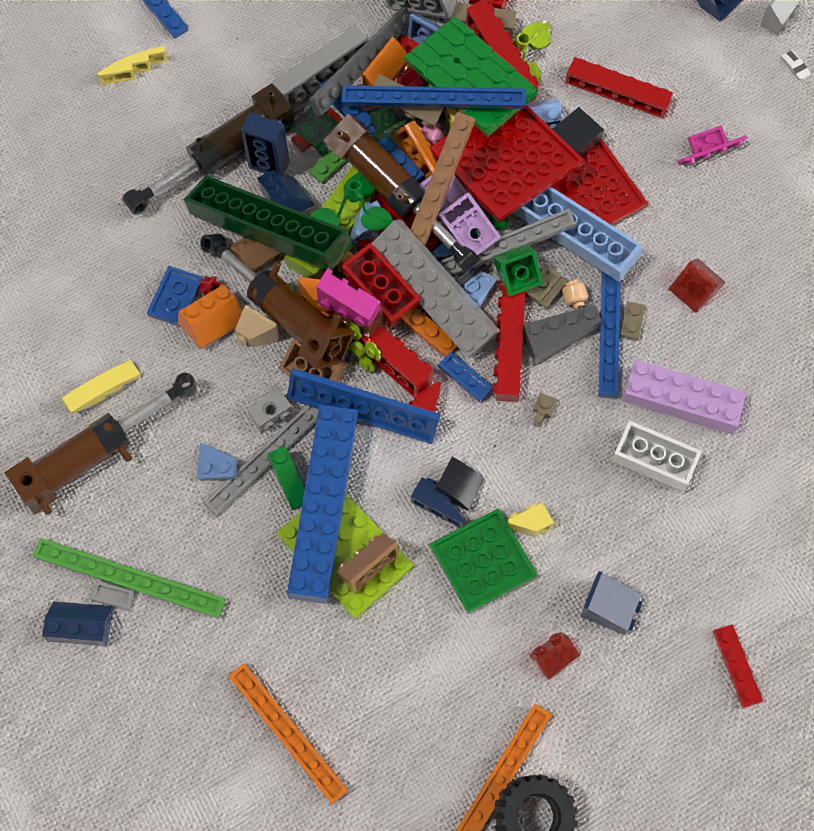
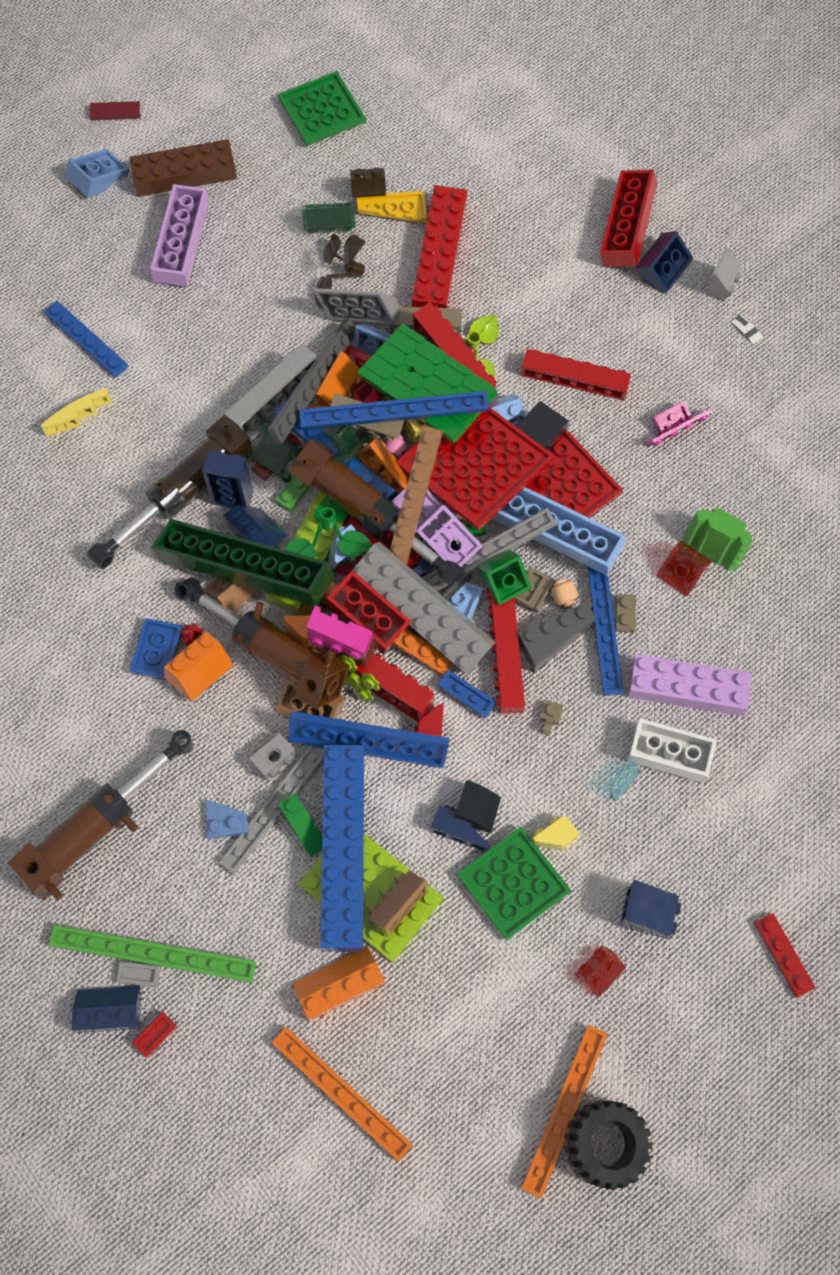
camera: 10 degrees left, 0 degrees up
(100, 386) = (93, 755): light yellow slope -> none
(119, 652) = (154, 1034): none -> red plate
(256, 329) = (246, 673): tan slope -> none
(300, 631) = (338, 984): none -> orange slope
(604, 477) = (623, 779): none -> clear light blue tile
(735, 259) = (719, 537): none -> bright green slope

